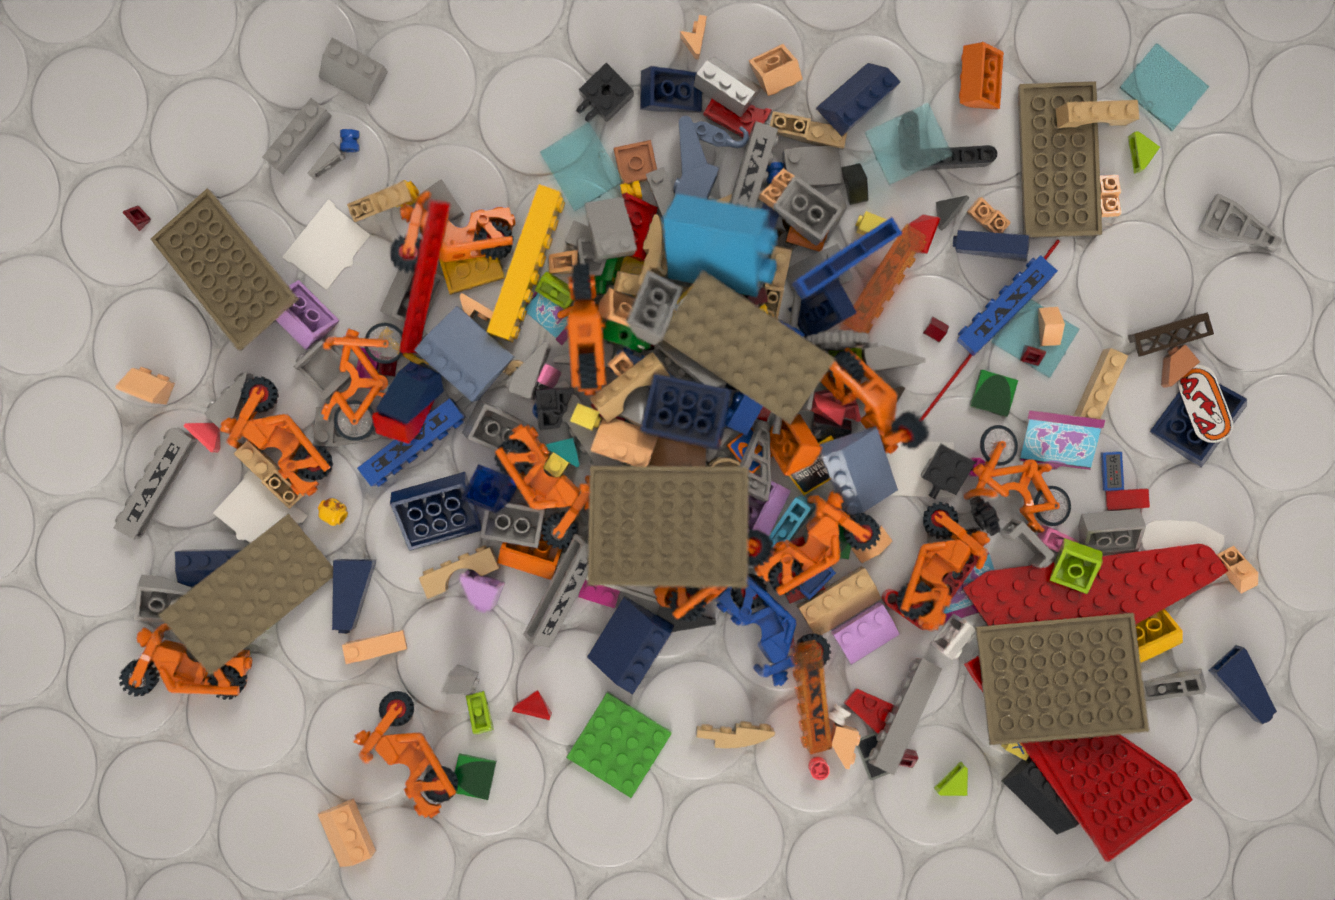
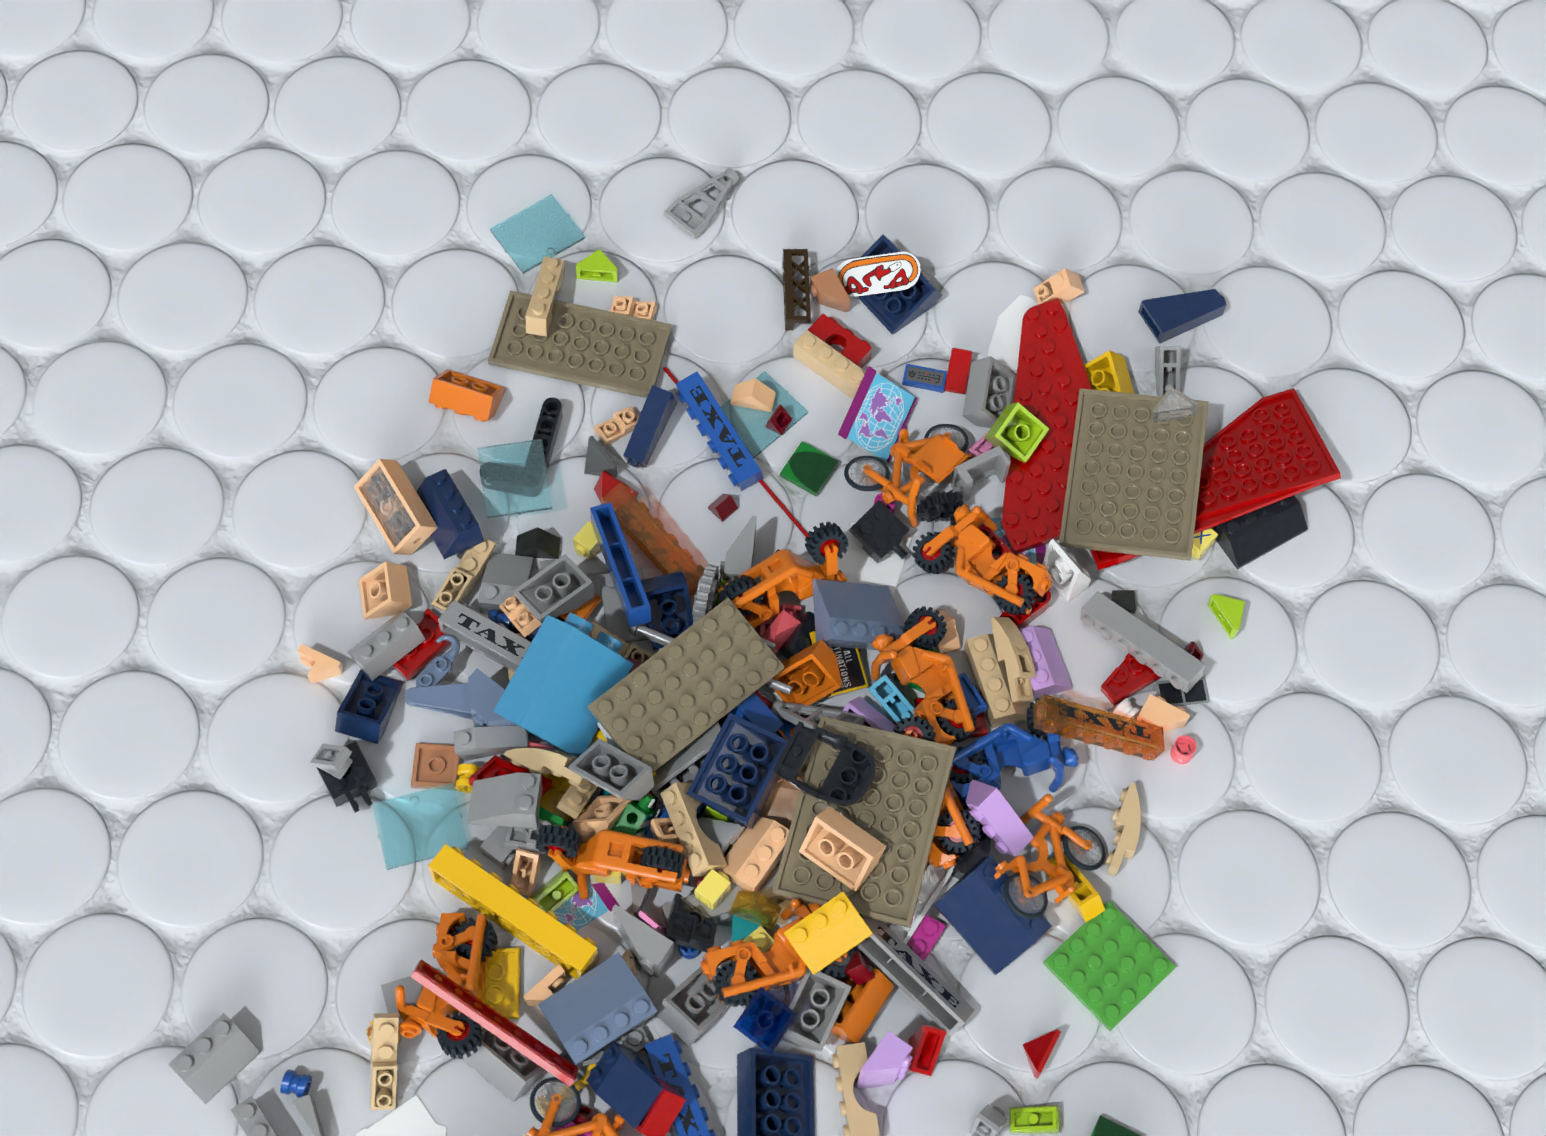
camera: 80 degrees left, 25 degrees down
(508, 616) = (926, 1048): none -> red slope
(552, 551) = (859, 969): none -> dark red slope
(565, 520) = (828, 933): none -> yellow slope
(580, 455) = (756, 908): none -> clear yellow slope
(607, 76) = (333, 759): none -> light grey slope
(635, 514) = (842, 848): none -> light nougat slope
(675, 703) = (1084, 897): none -> yellow slope
(694, 503) = (846, 780): none -> black slope
(705, 631) = (997, 818): none -> lavender slope
(706, 705) = (1081, 846): none -> piece
(853, 51) = (395, 507): none -> brick
(863, 610) = (1017, 657): none -> tan slope
(943, 691) = (1125, 599): none -> pearl dark grey tile
(1029, 504) = (938, 458): none -> orange piece
(1133, 374) = (832, 333): none -> red arch
(1134, 702) = (1174, 406): none -> clear slope

